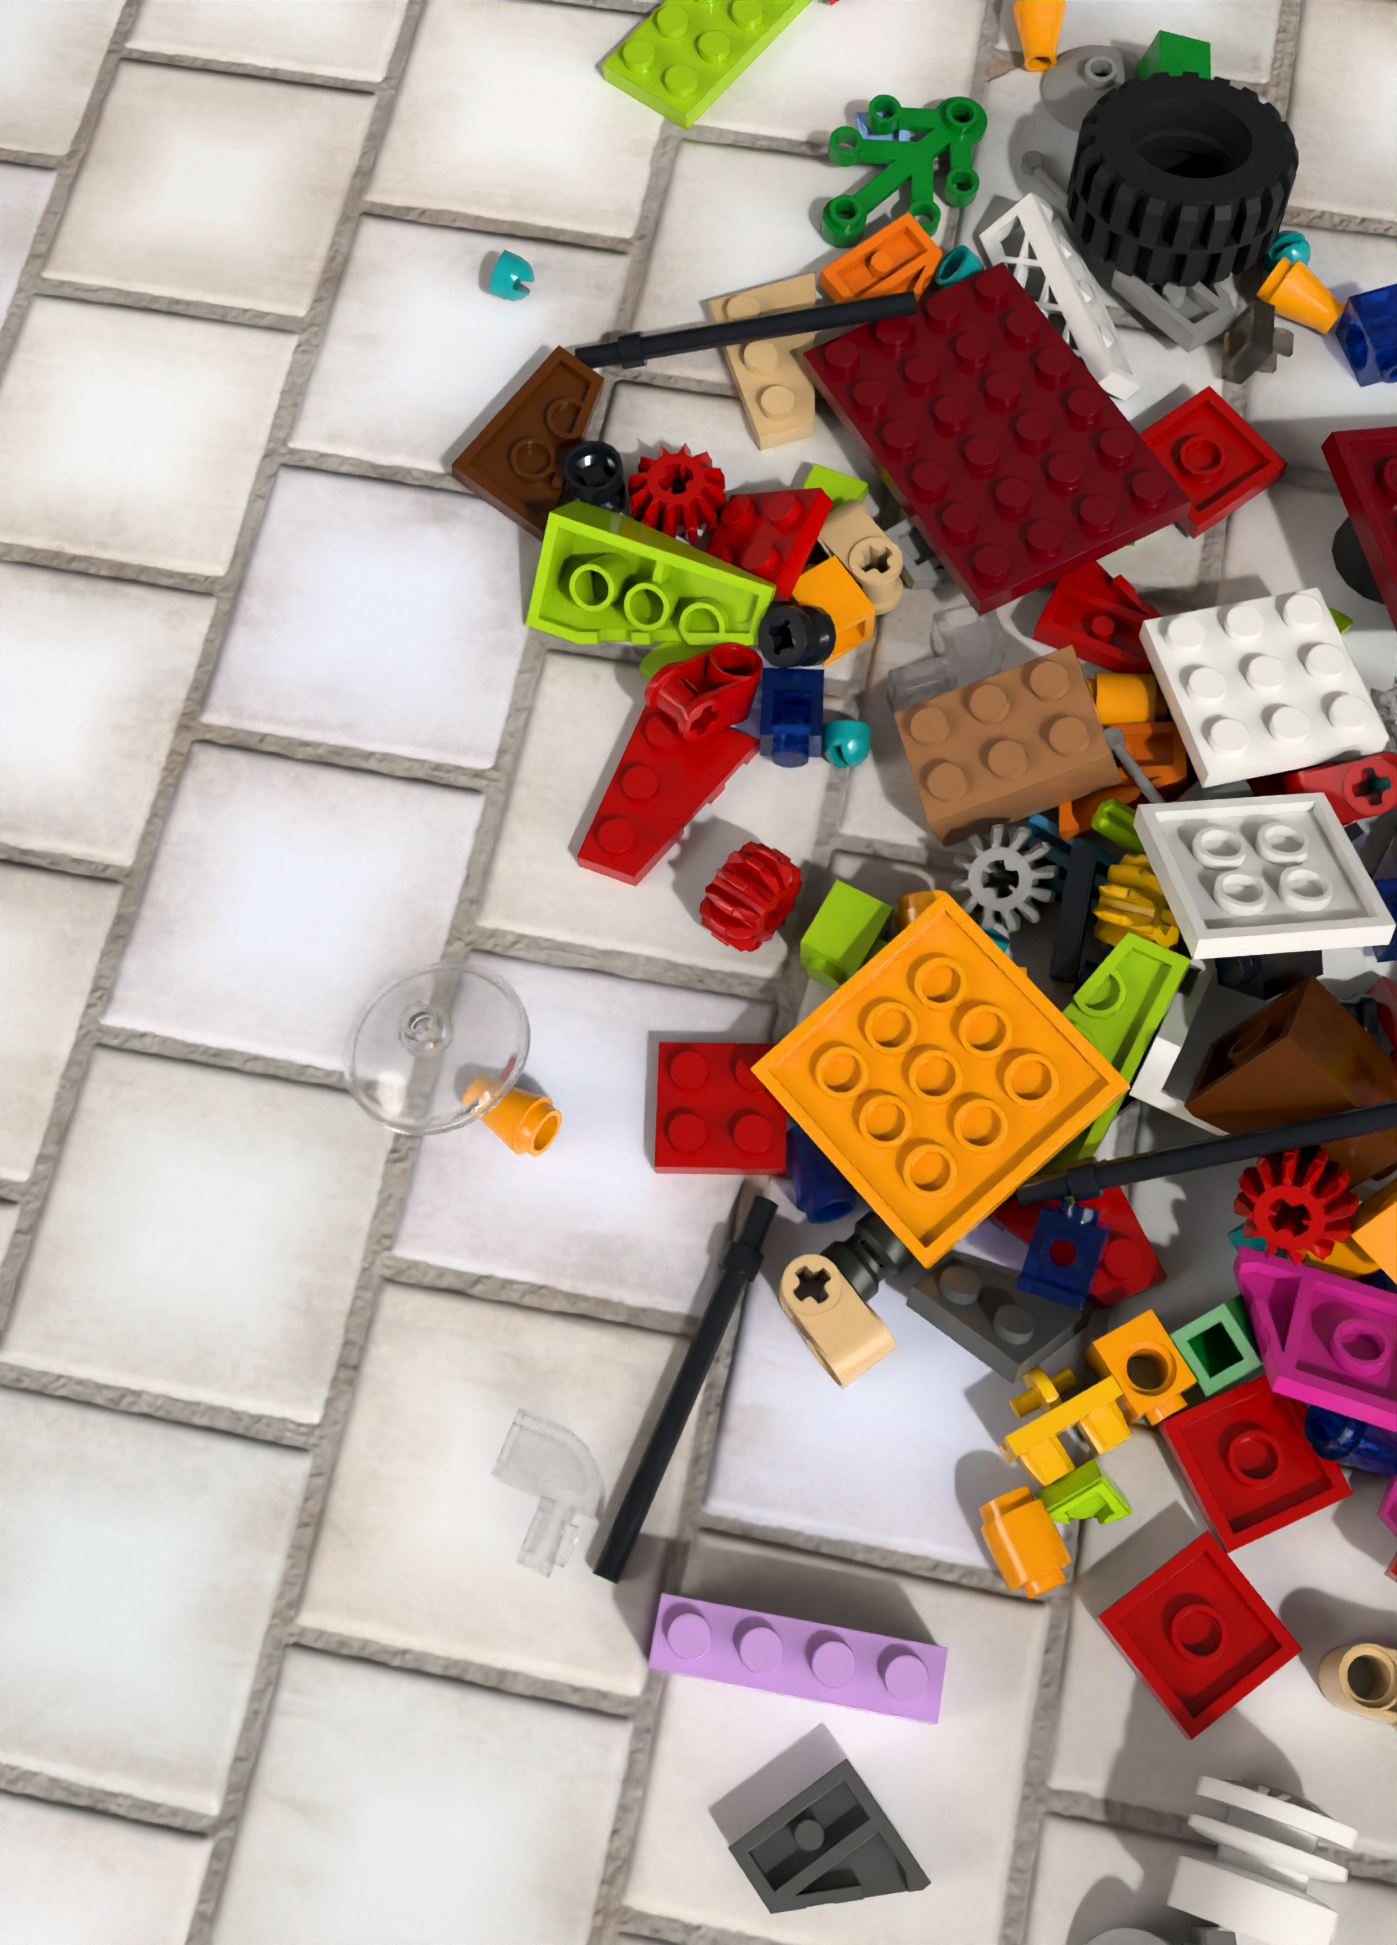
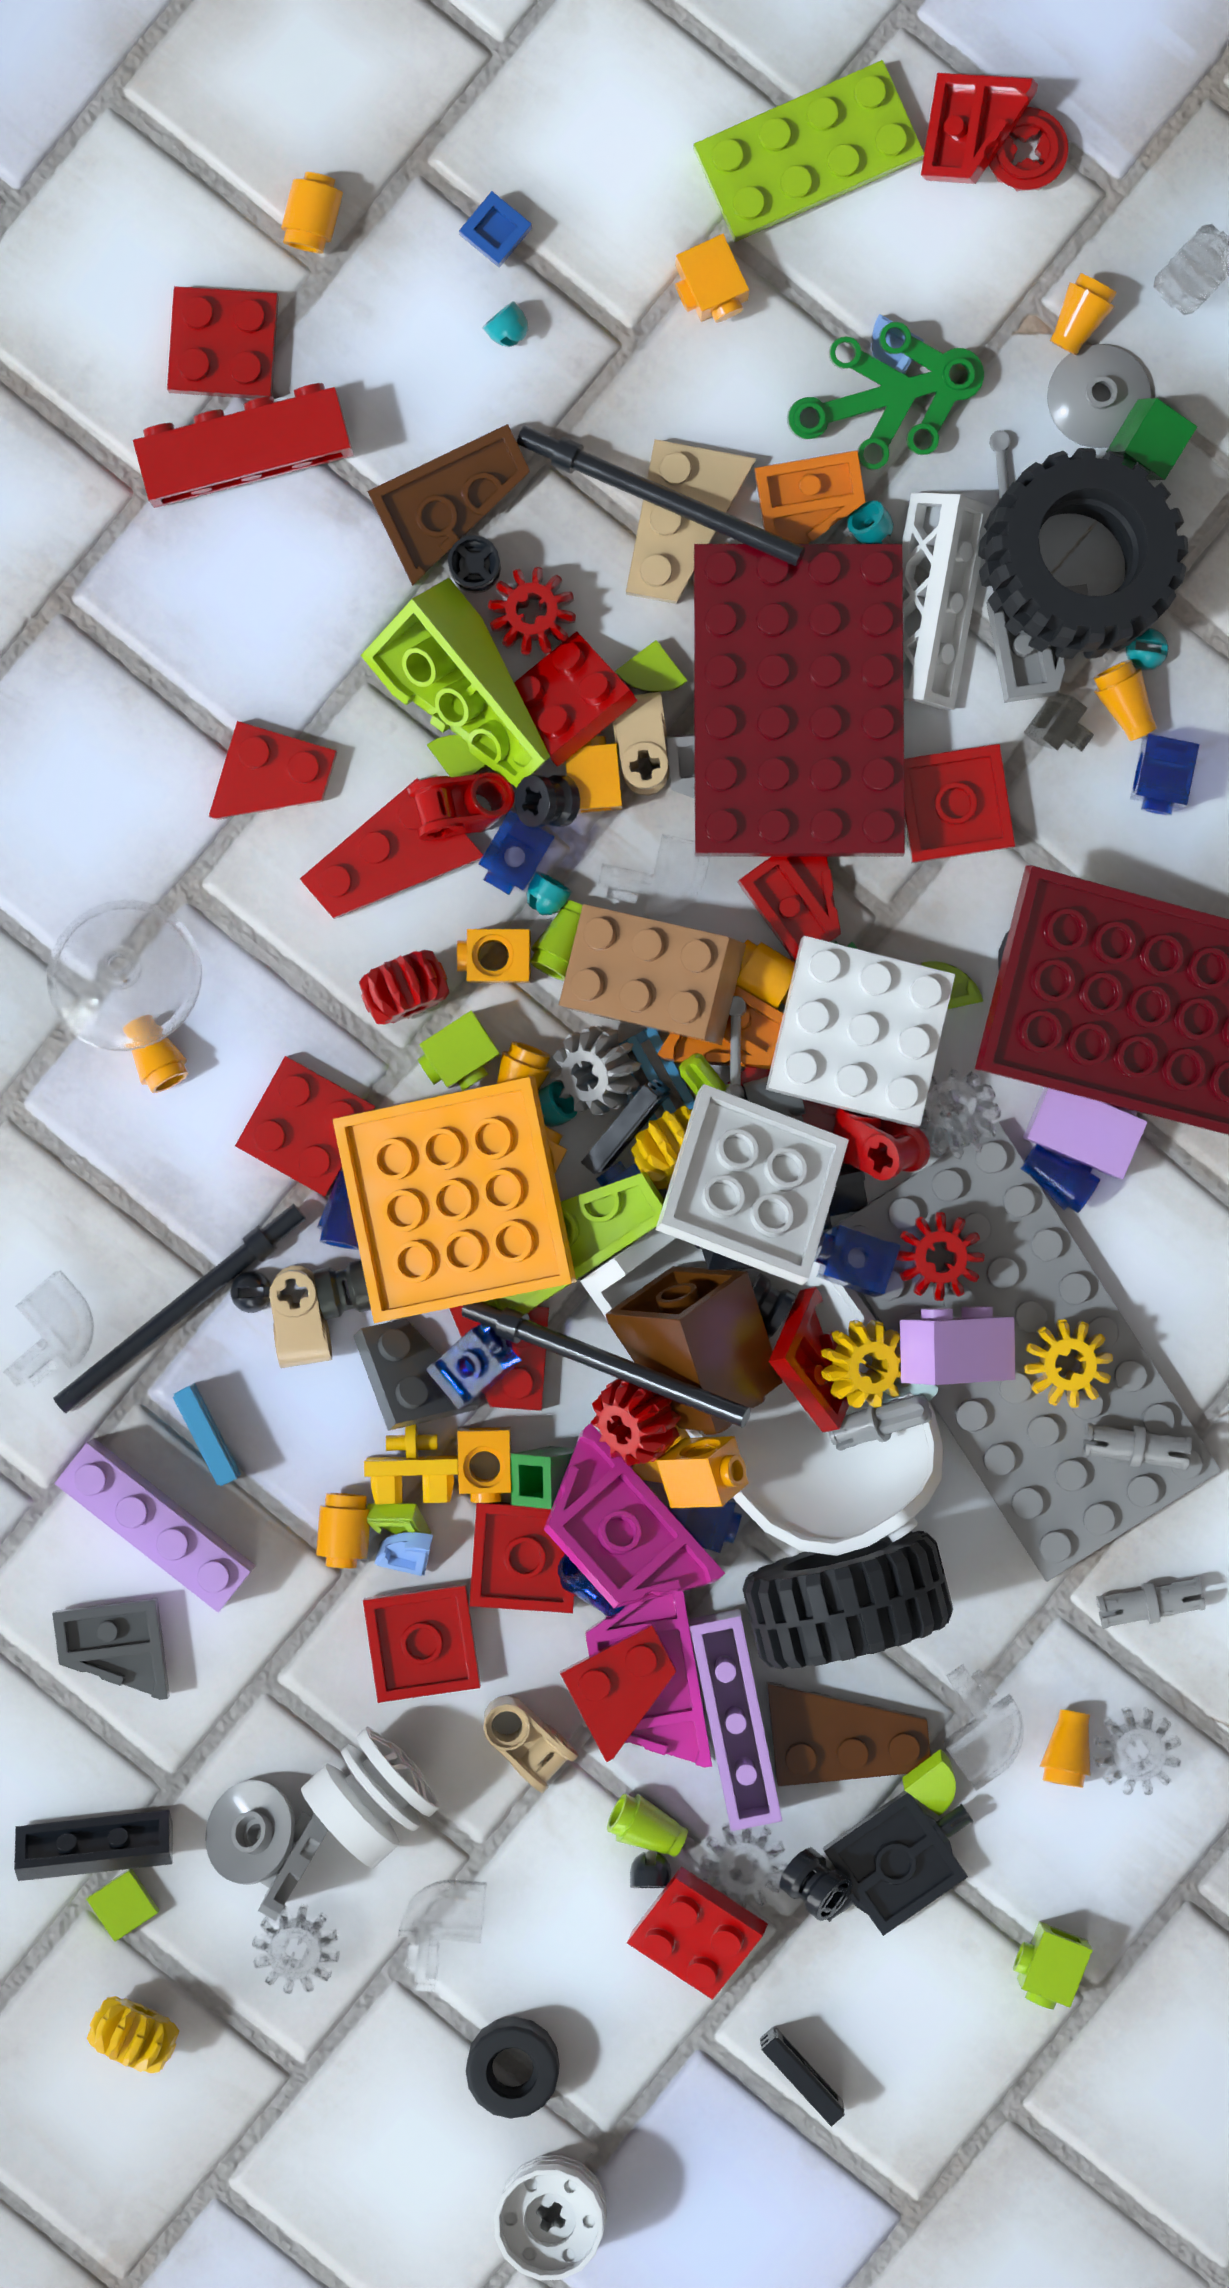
camera: 25 degrees right, 20 degrees up
(240, 423) = (222, 342): none -> red plate
(271, 273) = (311, 212): none -> light orange brick
(305, 486) = (242, 446): none -> red brick
(456, 208) = (495, 229): none -> blue plate
(490, 775) = (270, 773): none -> red wing
(683, 150) = (711, 280): none -> light orange brick
(767, 1334) = (251, 1280): none -> black hinge
(799, 1514) = (206, 1435): none -> dark azure tile
(836, 800) = (518, 964): none -> light orange brick
(889, 781) = (555, 944): none -> lime cone
(1113, 1530) = (405, 1552): none -> light blue tile

